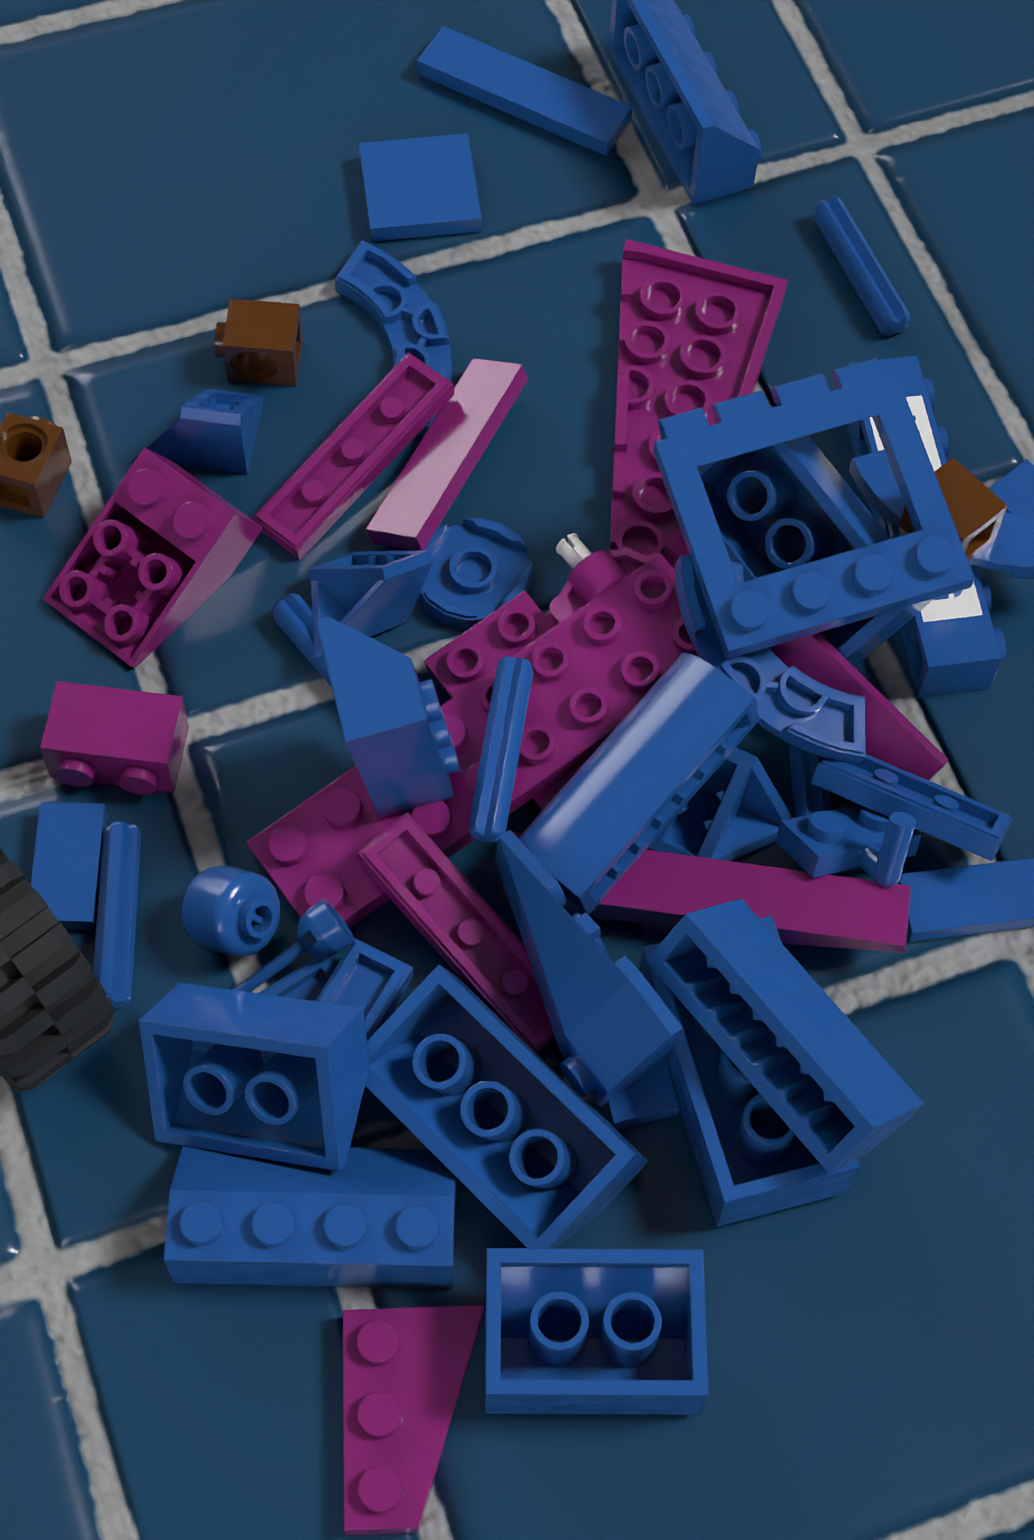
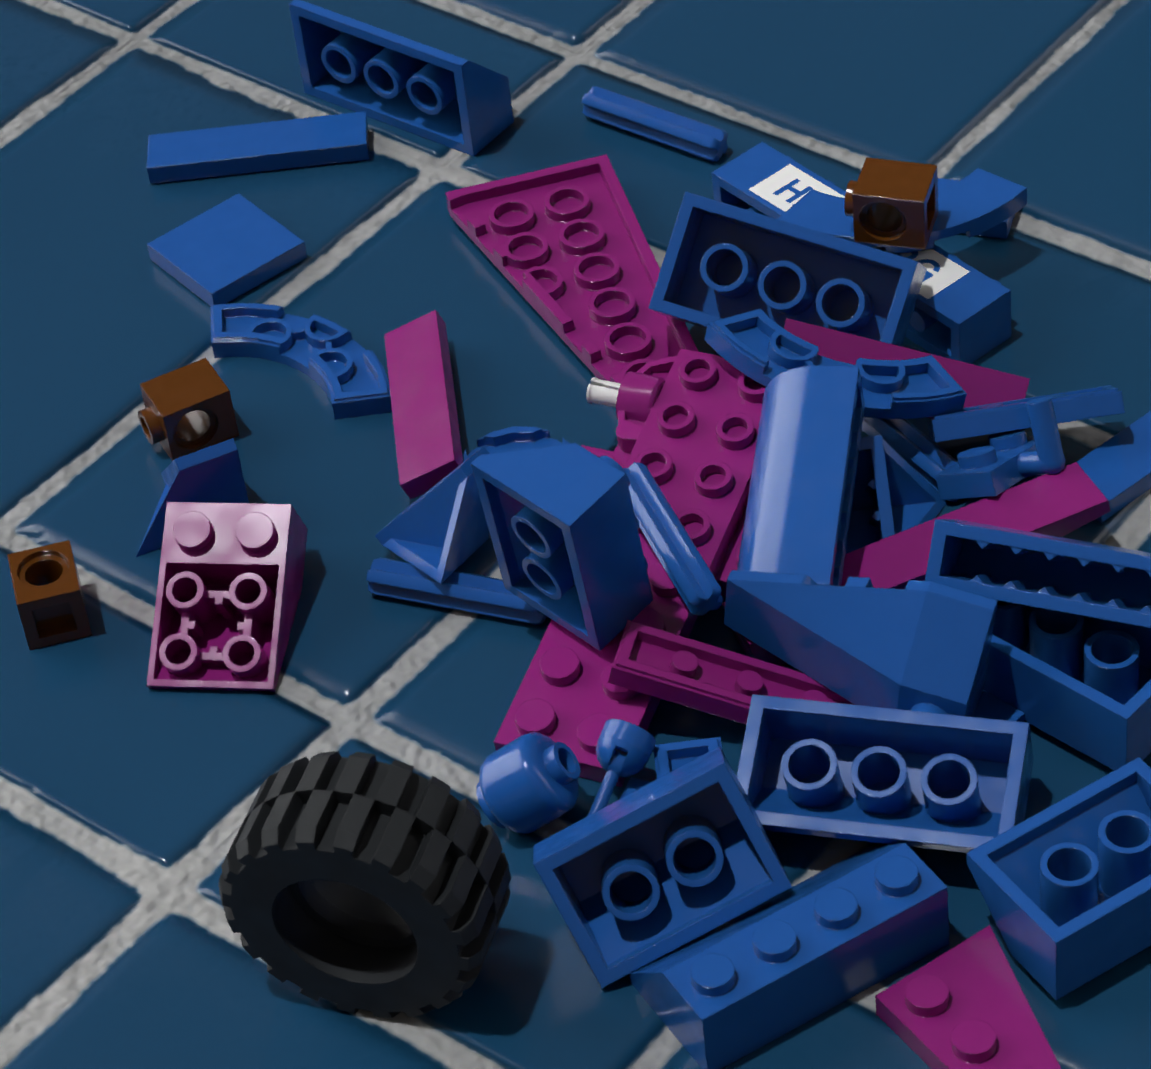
camera: 25 degrees left, 20 degrees down
(114, 738) = (308, 718): magenta brick -> none
(354, 455) = (343, 444): magenta tile -> none
(836, 587) = (841, 289): blue hinge -> none

